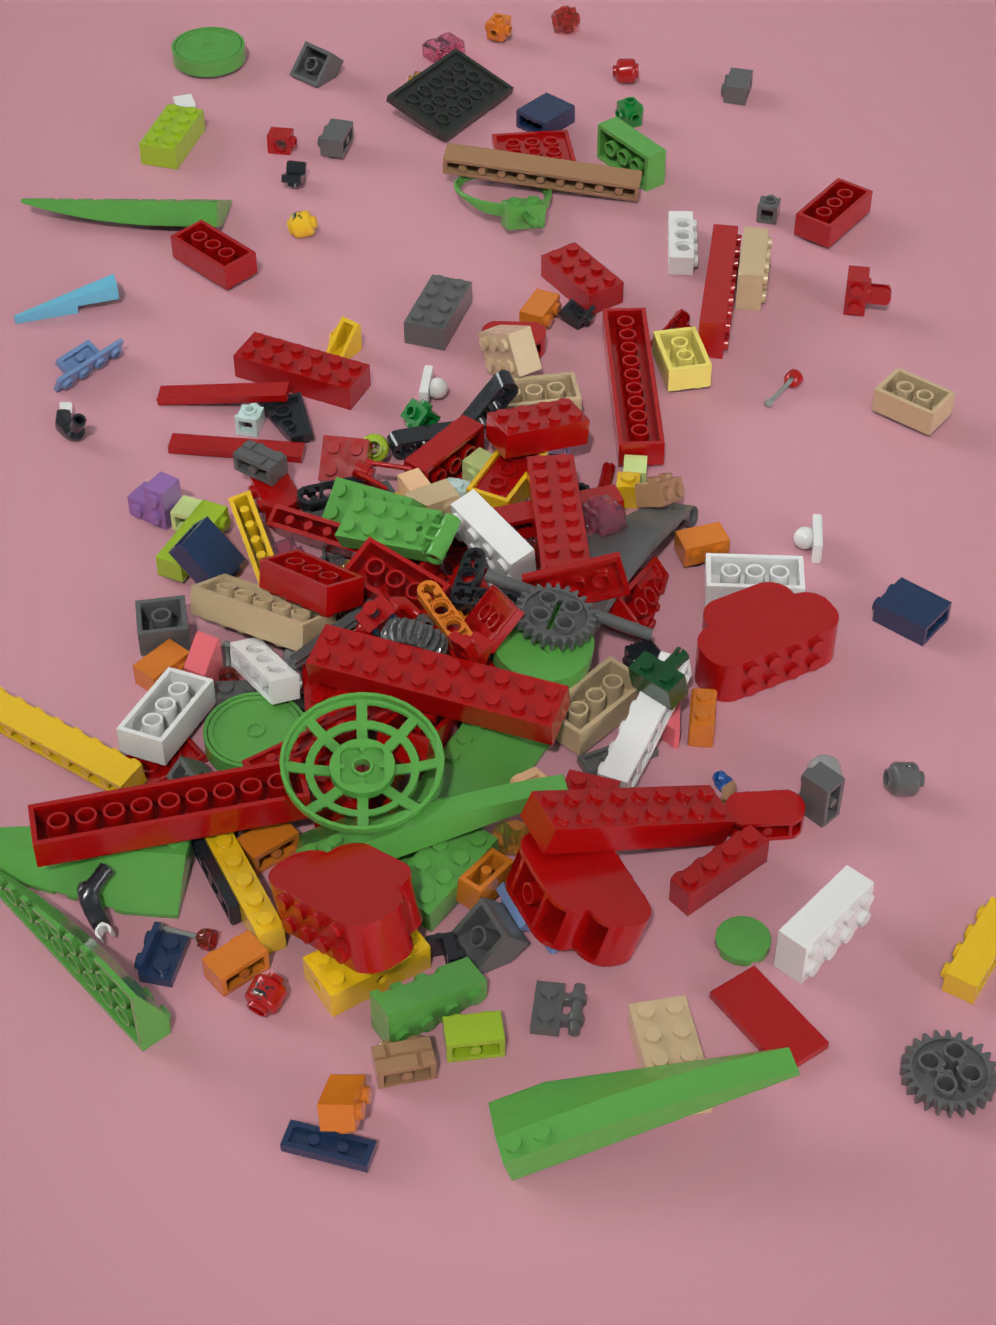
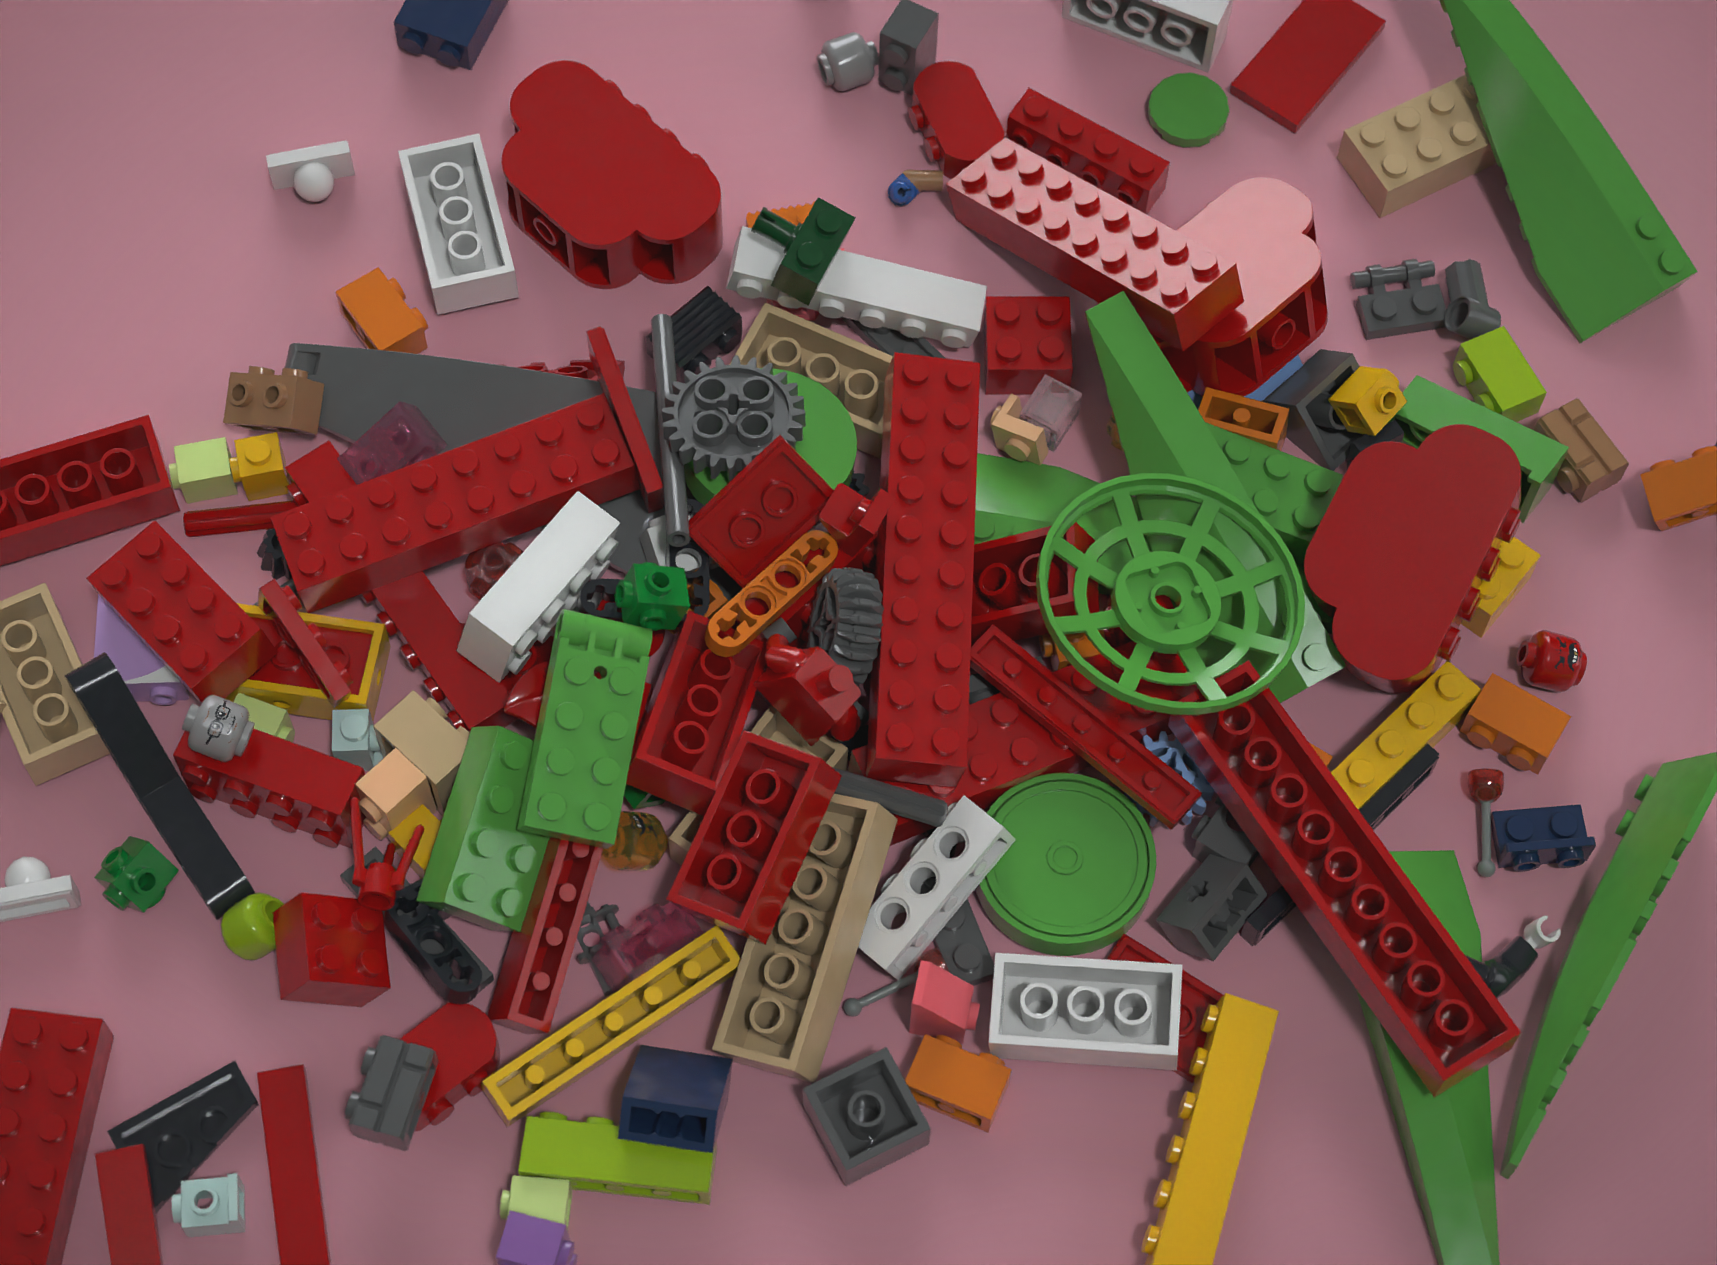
camera: 110 degrees left, 20 degrees up
(459, 564) = (653, 596): none -> green brick
(463, 420) = (218, 728): none -> light grey head
(475, 941) = (1368, 400): none -> yellow brick
(500, 460) = (329, 676): none -> red wing
(529, 1035) = (1468, 307): none -> dark grey piece

